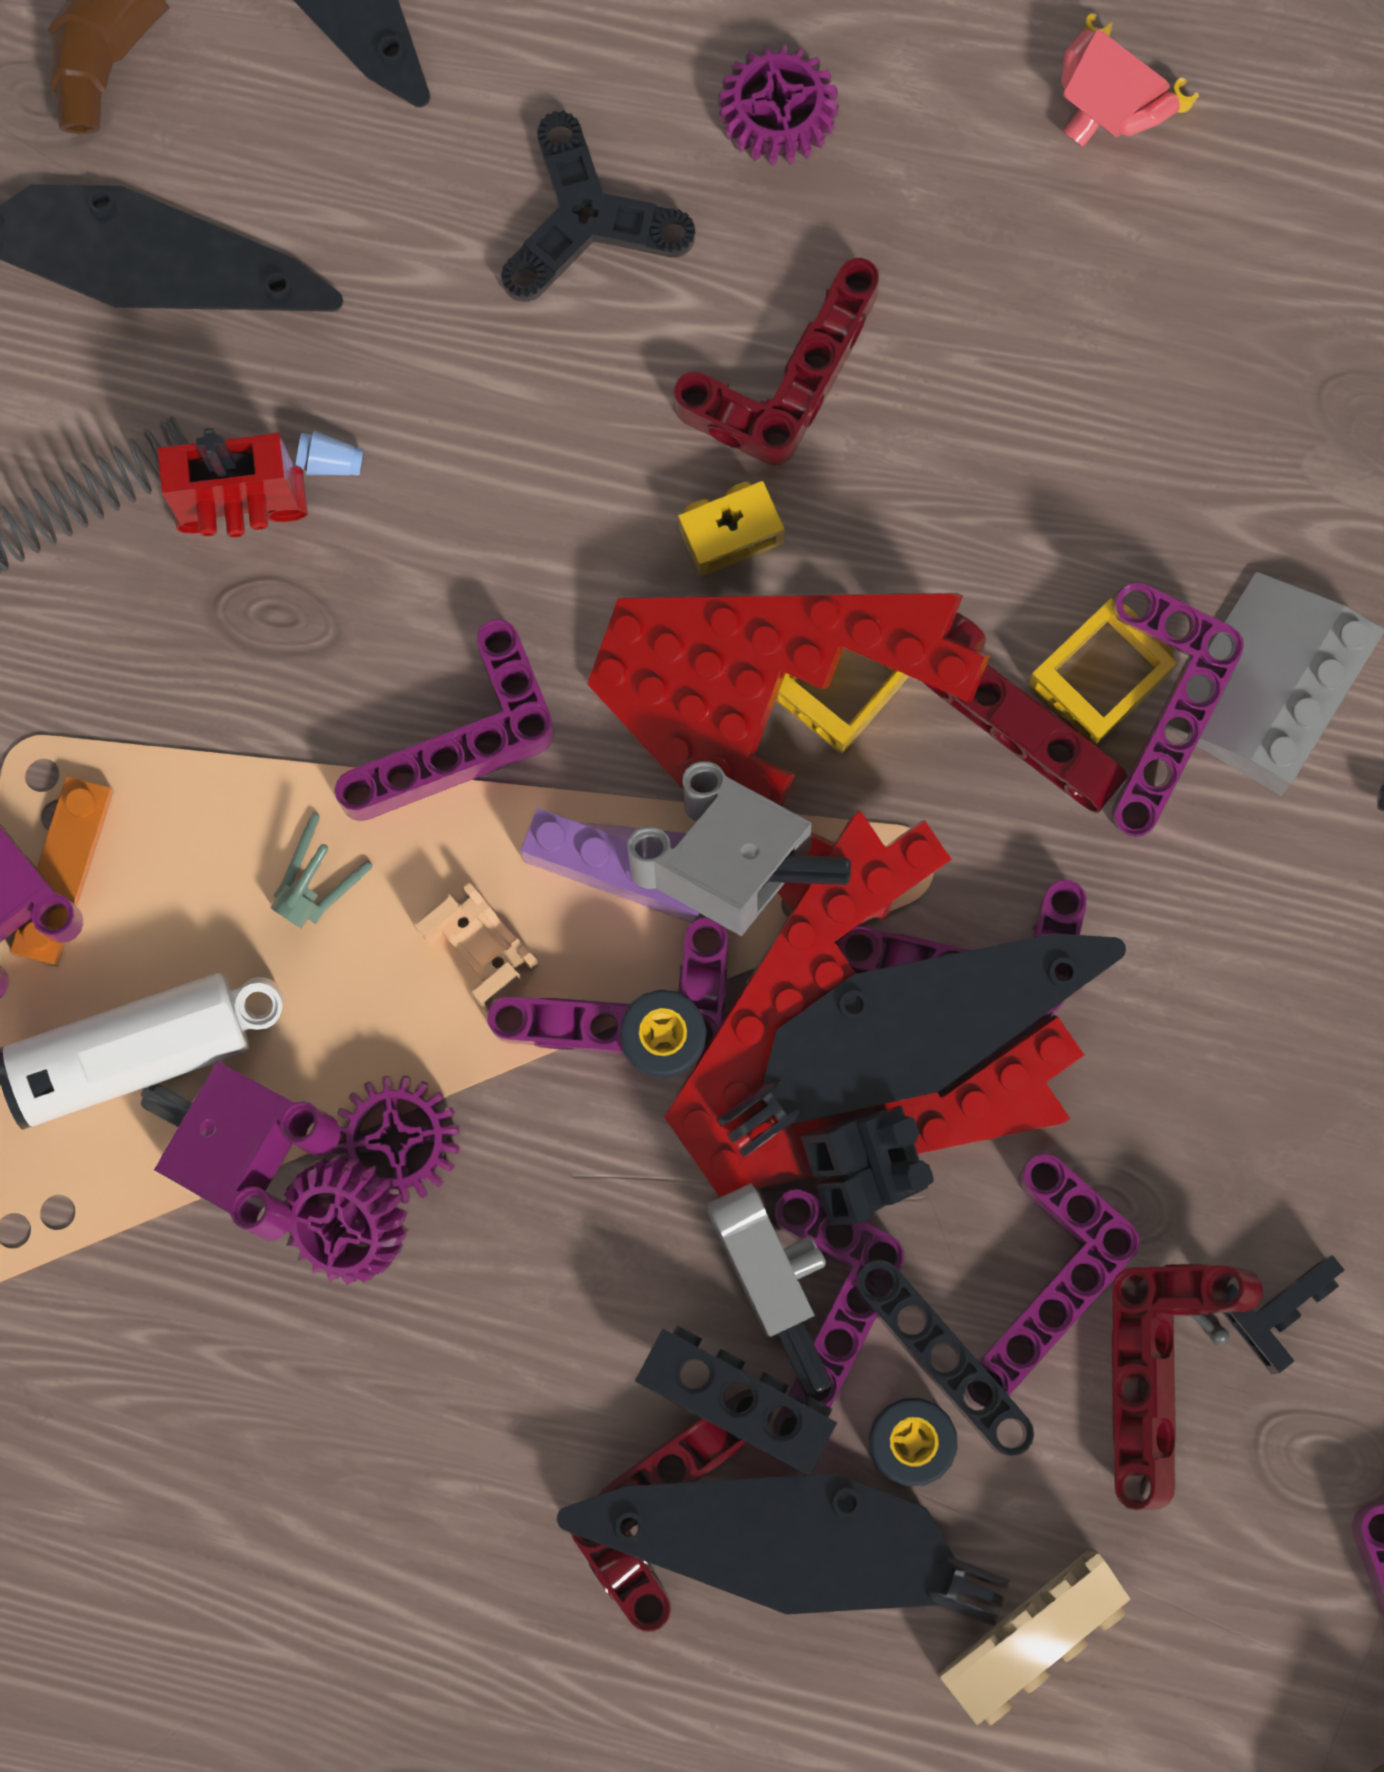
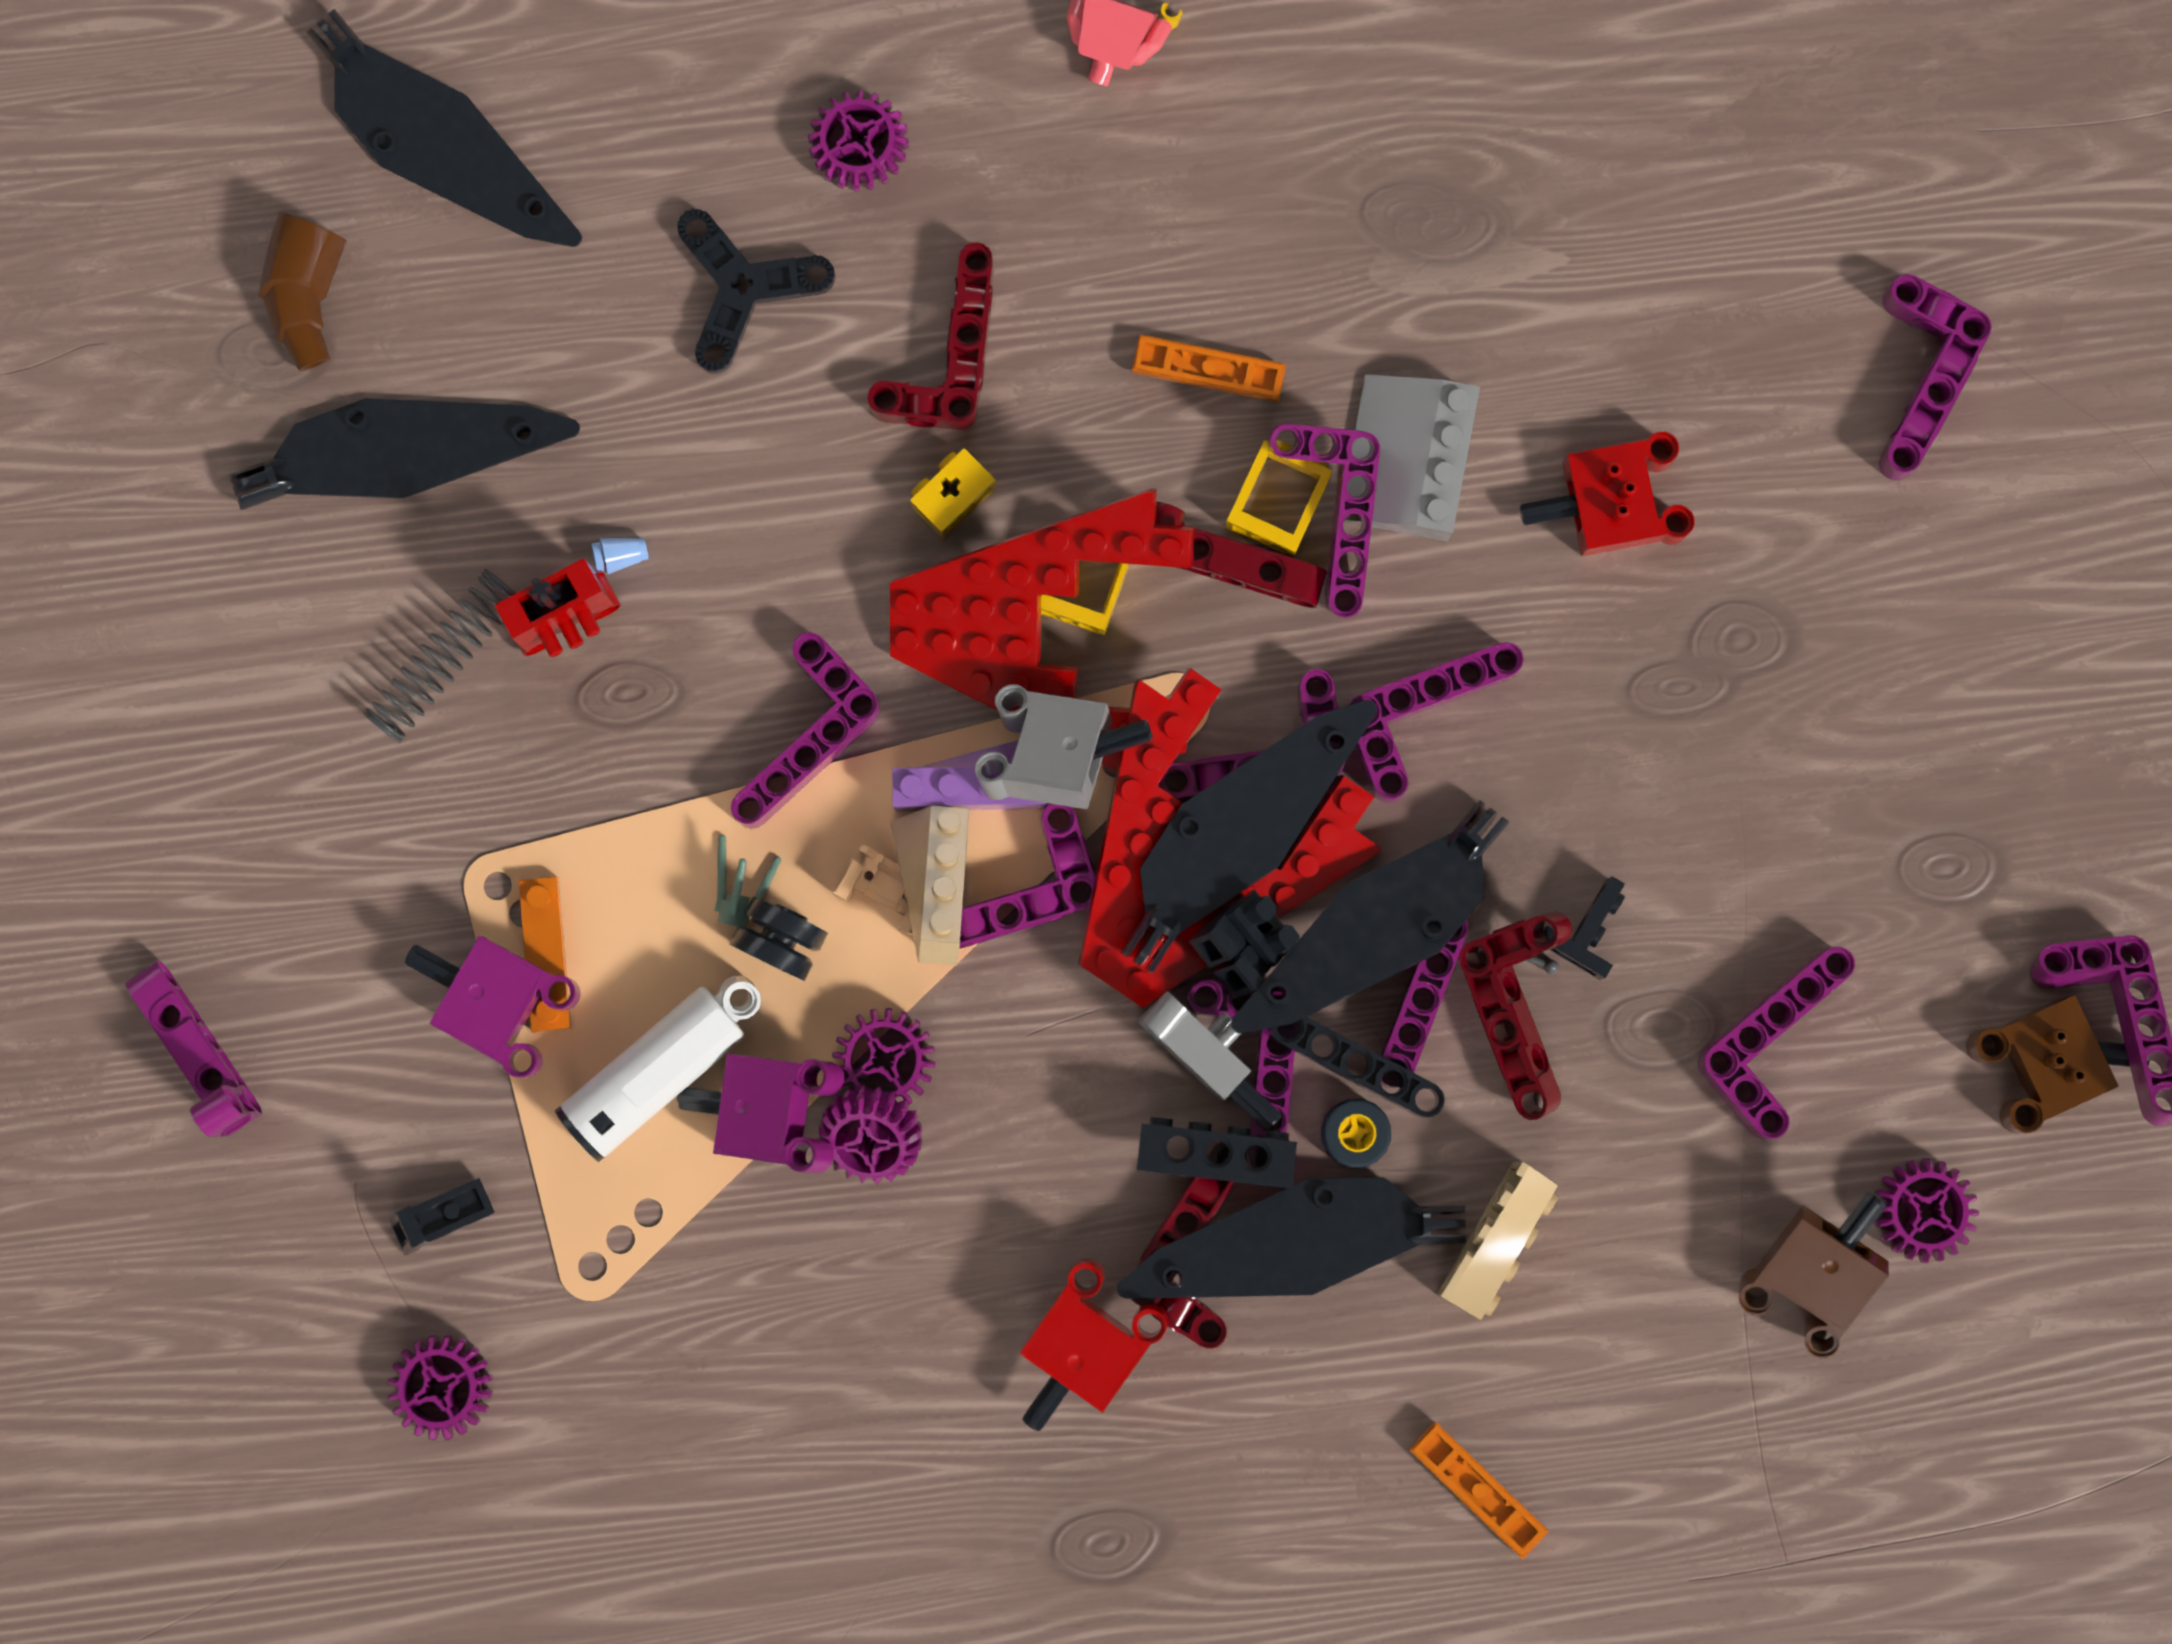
camera: 25 degrees left, 5 degrees up
(333, 949) = (779, 937): none -> black wheel
(493, 1569) = (1085, 1348): none -> red piece
(538, 939) = (932, 866): none -> tan wedge
(666, 1019) = (1064, 896): black wheel -> none
(1031, 1206) = (1378, 926): none -> black wing
(1077, 498) = (1208, 368): none -> orange plate
(1180, 966) = (1420, 701): none -> magenta beam

